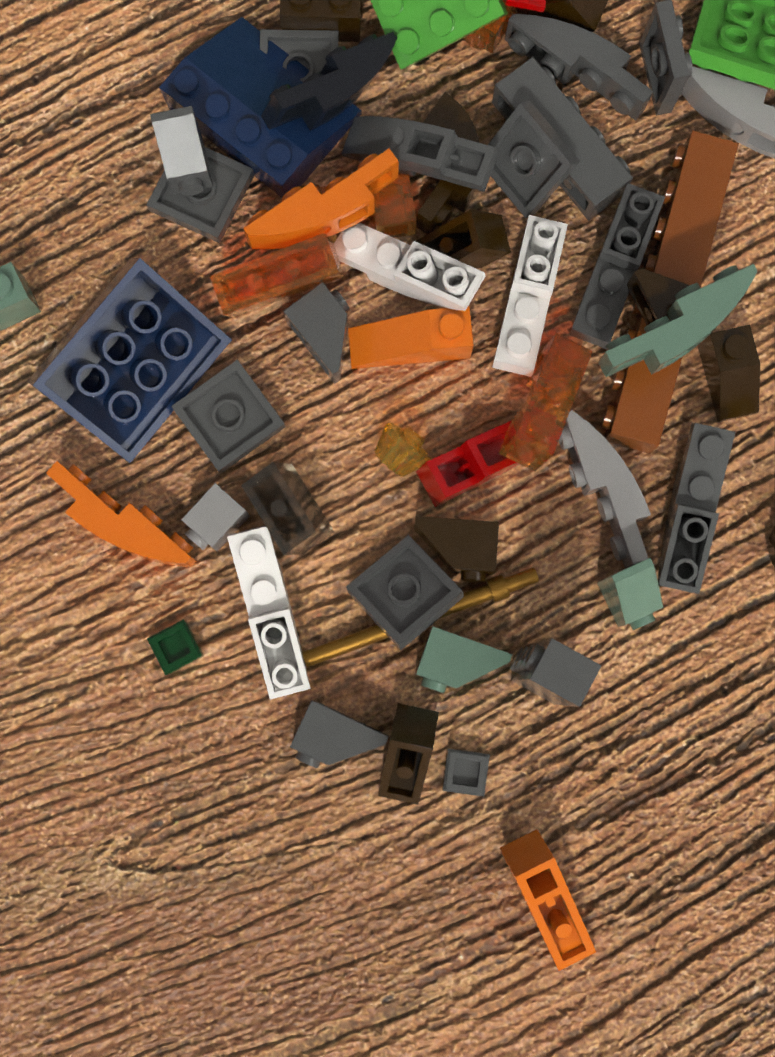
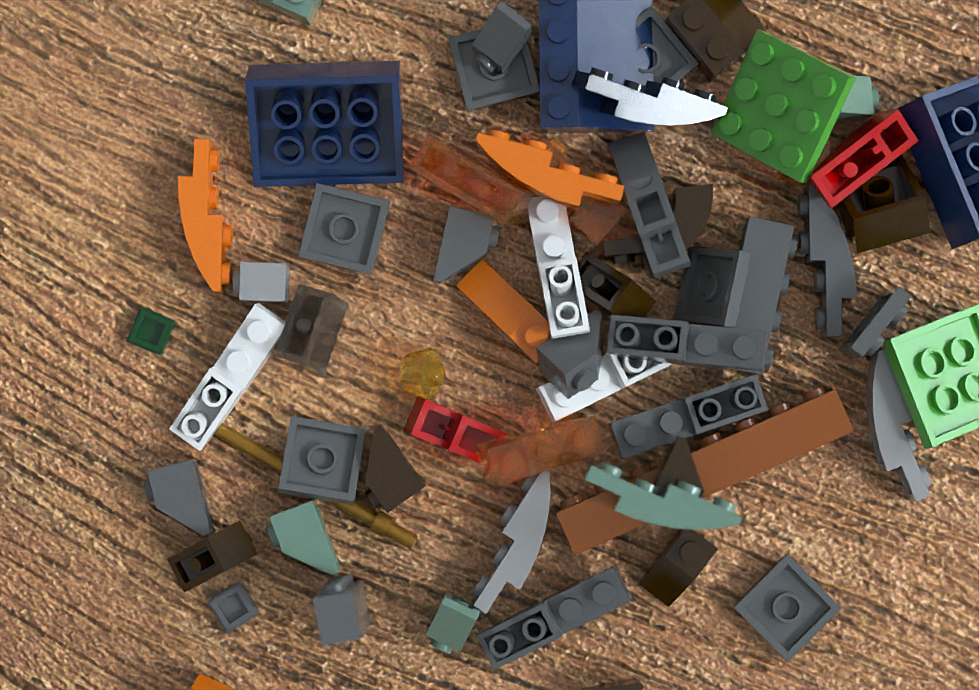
camera: 55 degrees right, 5 degrees up
(495, 313) = (573, 360): none -> dark grey slope
(561, 209) = (687, 343): none -> dark grey slope

